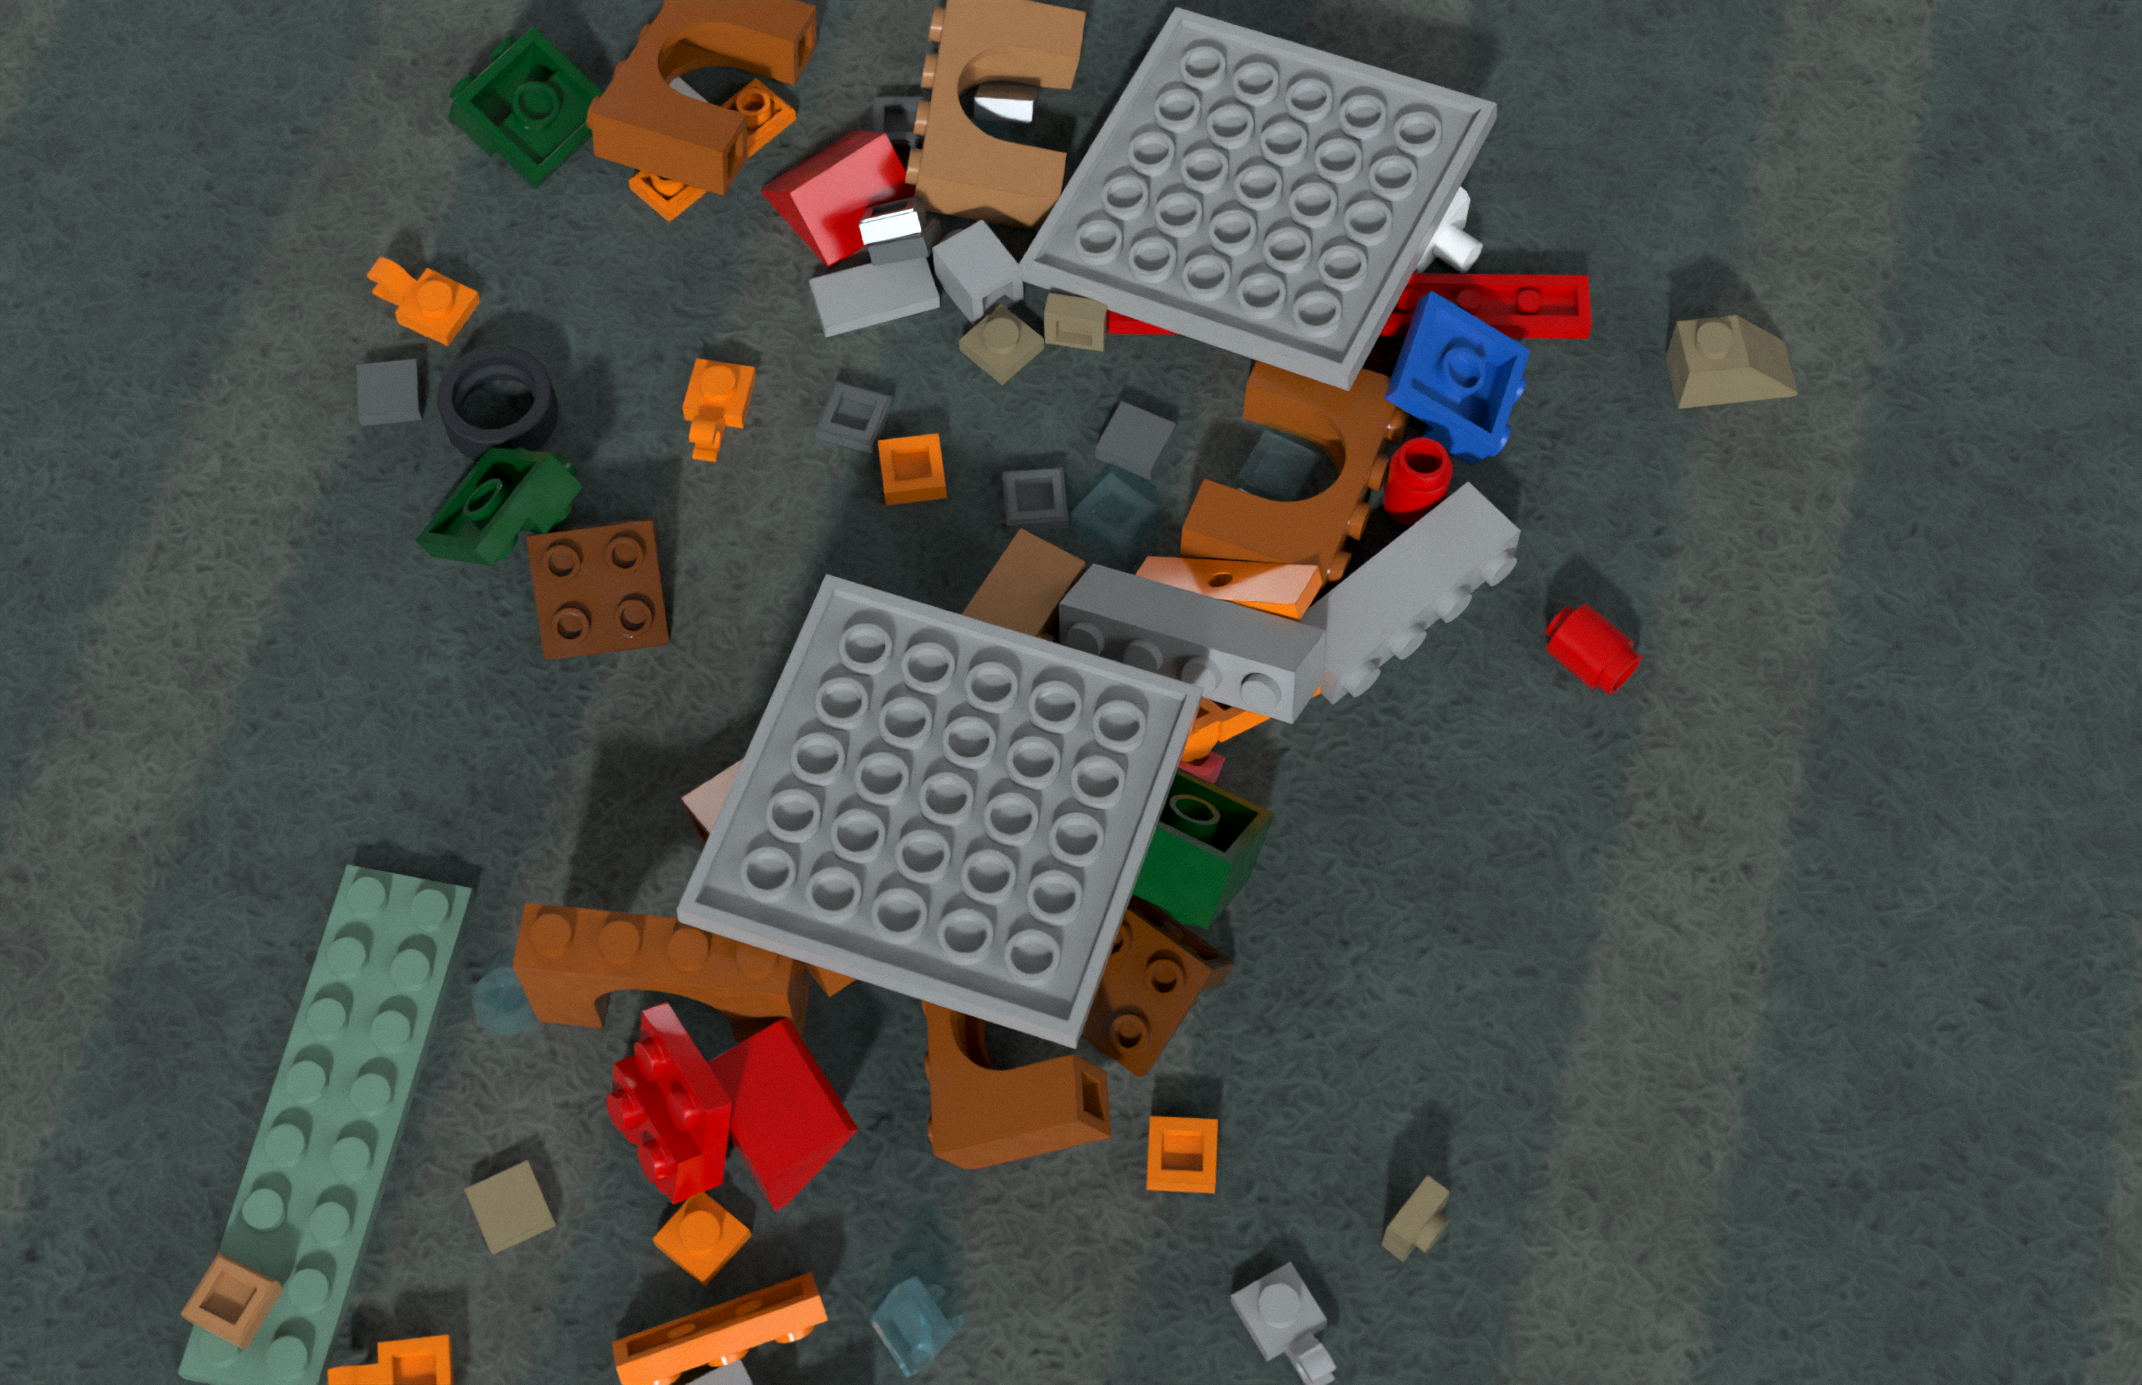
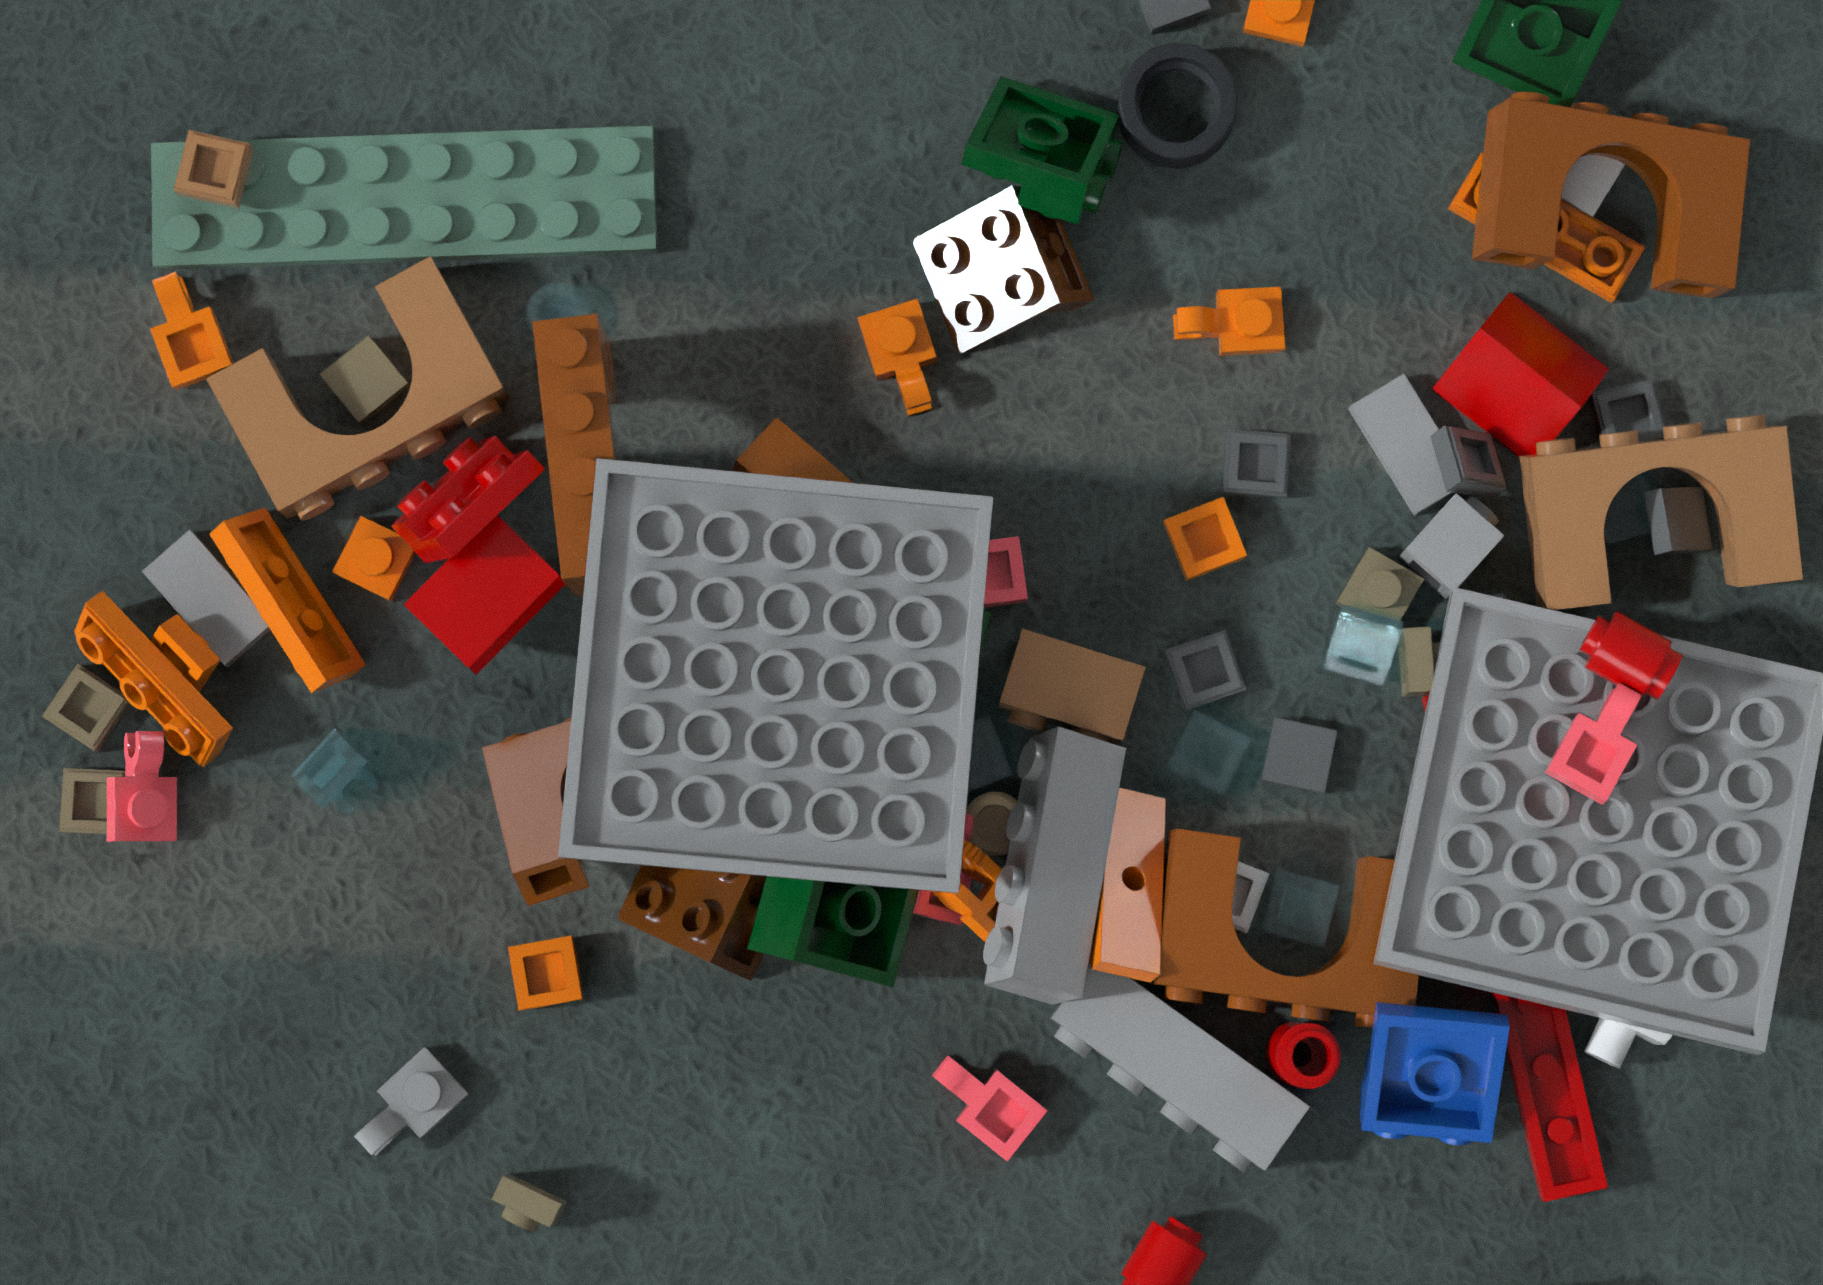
camera: 80 degrees right, 20 degrees up
(576, 1280) = (448, 387): none -> medium nougat arch
(646, 689) = (898, 348): none -> orange plate
(892, 220) = (1483, 443): tile -> none
(1047, 363) = (1362, 645): none -> clear light blue tile
(1120, 132) = (1630, 655): none -> red brick
(1196, 174) = (1594, 751): none -> coral plate
(1409, 761) = (995, 1110): none -> coral plate

